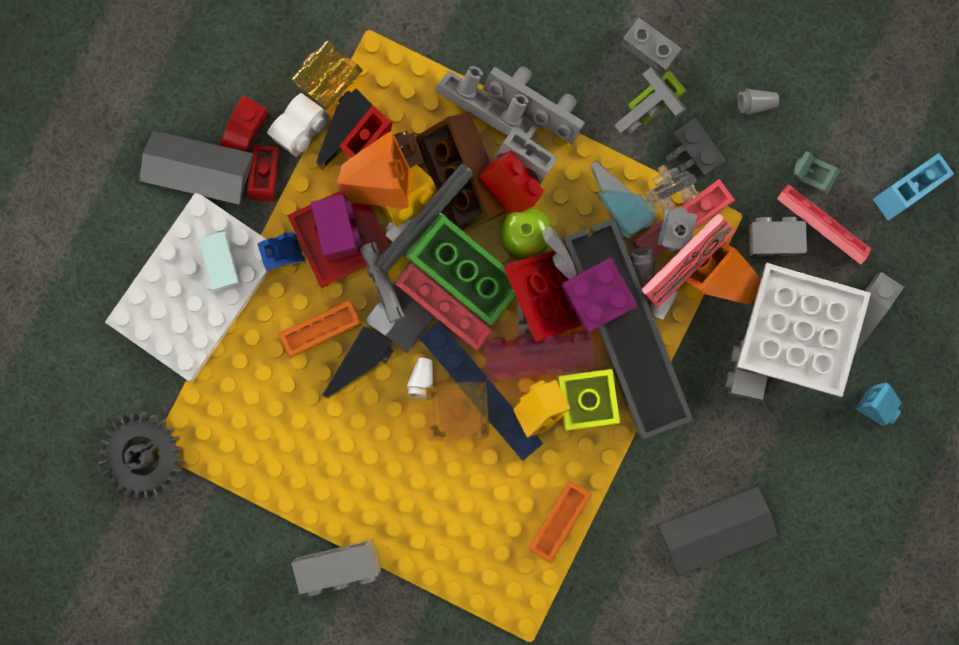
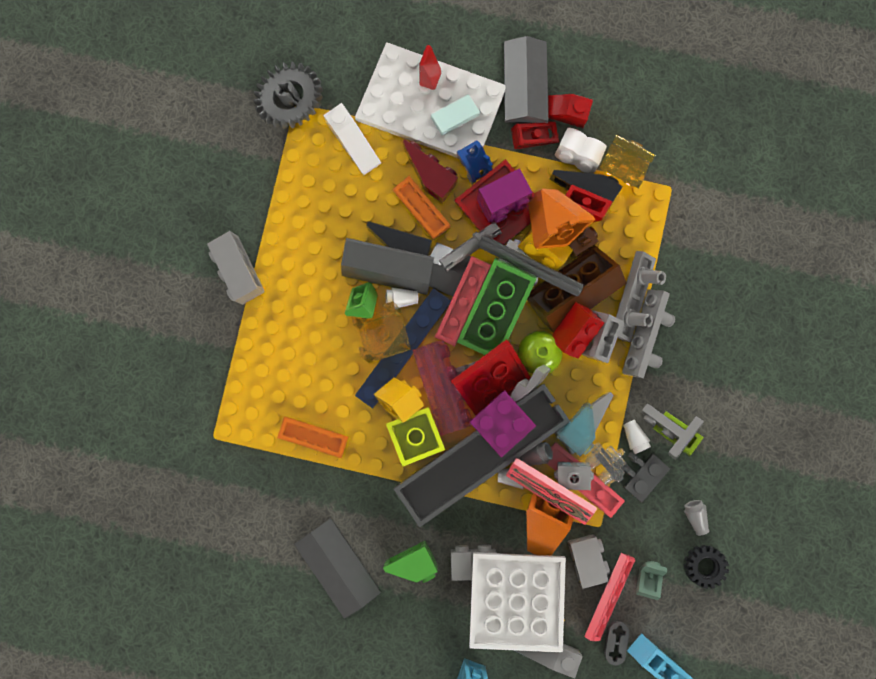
camera: 75 degrees right, 0 degrees up
(159, 277) = (429, 69): none -> red slope
(216, 391) = (351, 139): none -> white slope
(285, 306) = (433, 176): none -> dark red slope
(381, 385) = (386, 266): none -> dark grey slope
(415, 425) = (362, 301): none -> bright green slope
(650, 46) = (720, 417): light grey brick -> none
(650, 147) = (636, 437): none -> white cone
(733, 438) = (413, 564): none -> bright green slope
(826, 95) = (719, 566): none -> black tyre
(874, 235) = (621, 643): none -> dark grey beam

